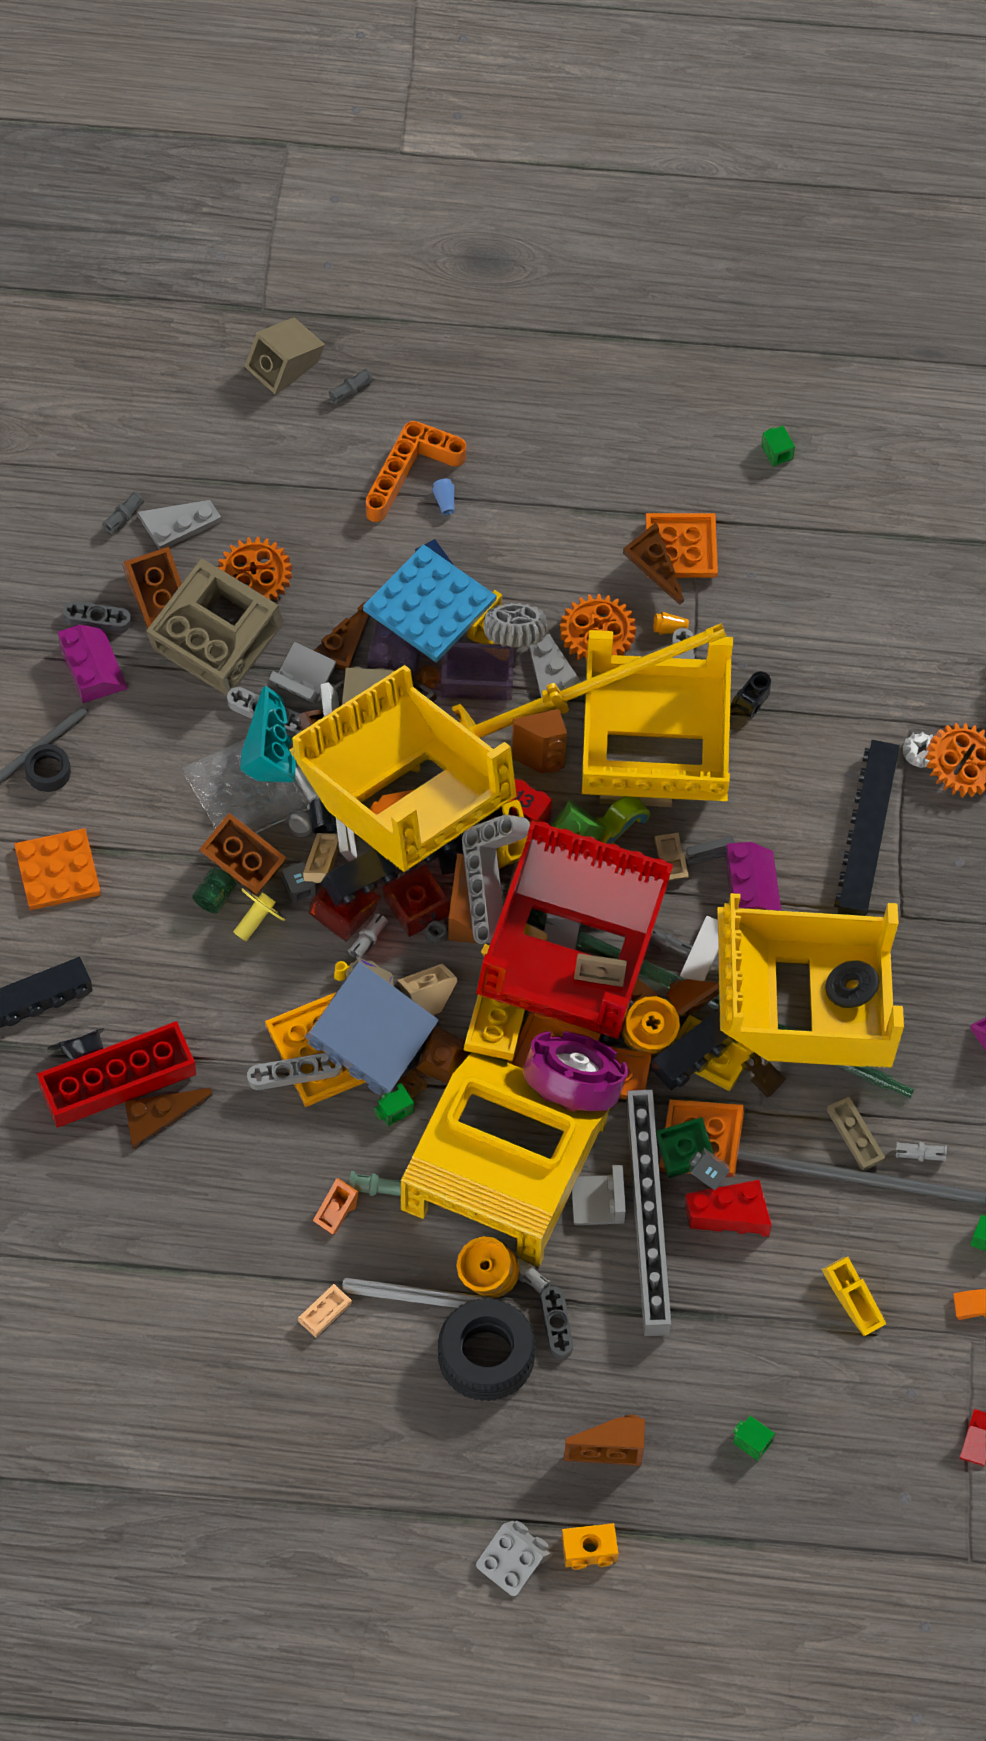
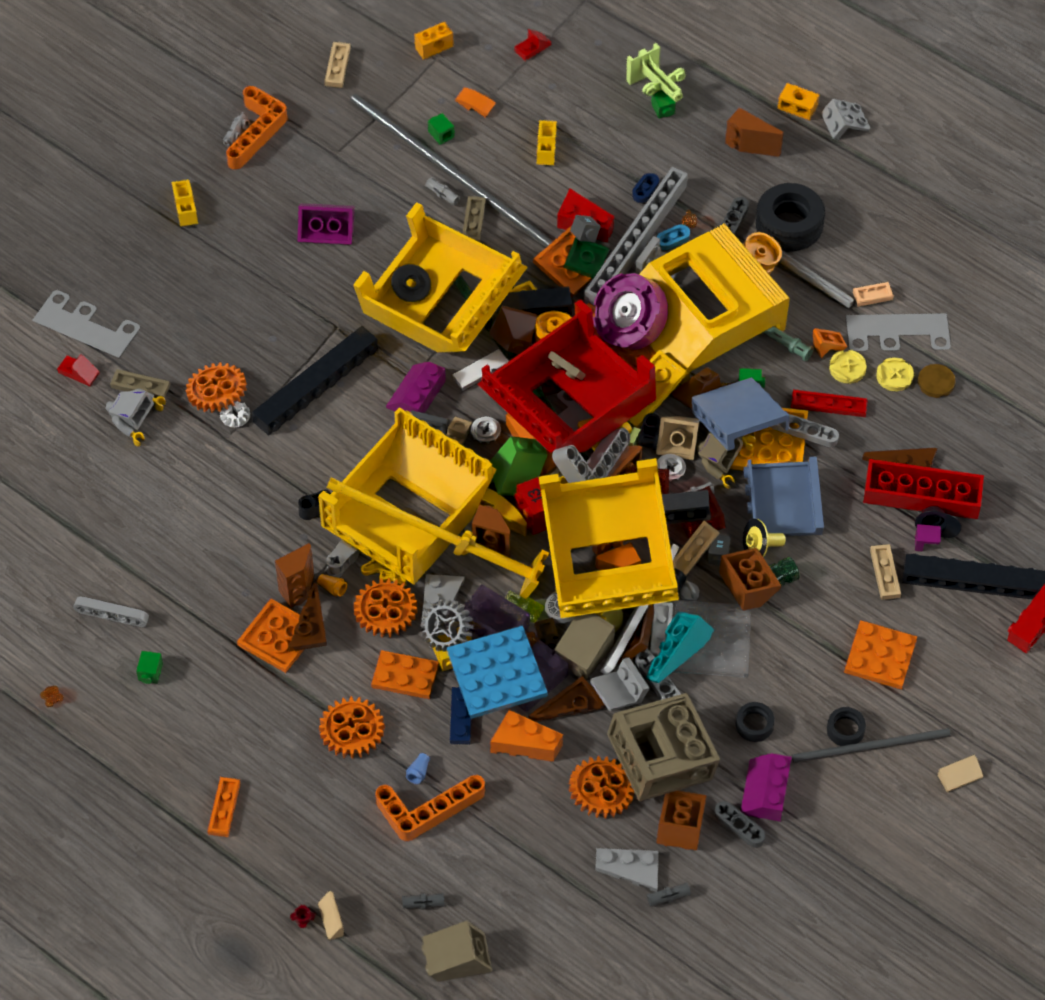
camera: 145 degrees left, 5 degrees down
(80, 1021) = (927, 535): none -> magenta panel
(105, 960) = (885, 572): none -> tan plate
(144, 705) = (757, 708): none -> black tyre
(183, 1238) = (936, 380): none -> pearl gold tile
(236, 1220) = (895, 374): none -> light yellow tile
(266, 978) = (785, 497): none -> sand blue panel
(275, 1292) = (897, 324): none -> light grey piece
(289, 1137) = (829, 403): none -> red tile
(297, 1198) = (848, 366): none -> light yellow tile
(357, 575) = (527, 738): none -> orange wedge
(411, 943) = (673, 461): none -> white gear
(423, 330) = (331, 916): none -> tan slope
(451, 310) = (299, 911): none -> dark red plate
(466, 976) = (649, 434): none -> black piece
(475, 707) = (528, 605): none -> clear neon green slope
(476, 956) = (634, 437): none -> yellowish green tile
(529, 579) = (405, 674): none -> orange plate
(554, 508) = (357, 742): none -> orange gear
(560, 794) = (509, 513): none -> yellow slope
(601, 369) = (224, 807): none -> orange tile
(606, 1282) = (689, 220): none -> clear orange plate
(608, 1250) = (672, 237): none -> dark azure plate
(690, 1301) = (643, 191): none -> dark blue plate
(704, 587) = (295, 575): none -> dark orange slope
(805, 1464) = (648, 66): none -> yellowish green piece
(851, 370) = (49, 691): none -> clear orange plate
(861, 476) = (111, 611): none -> light grey beam

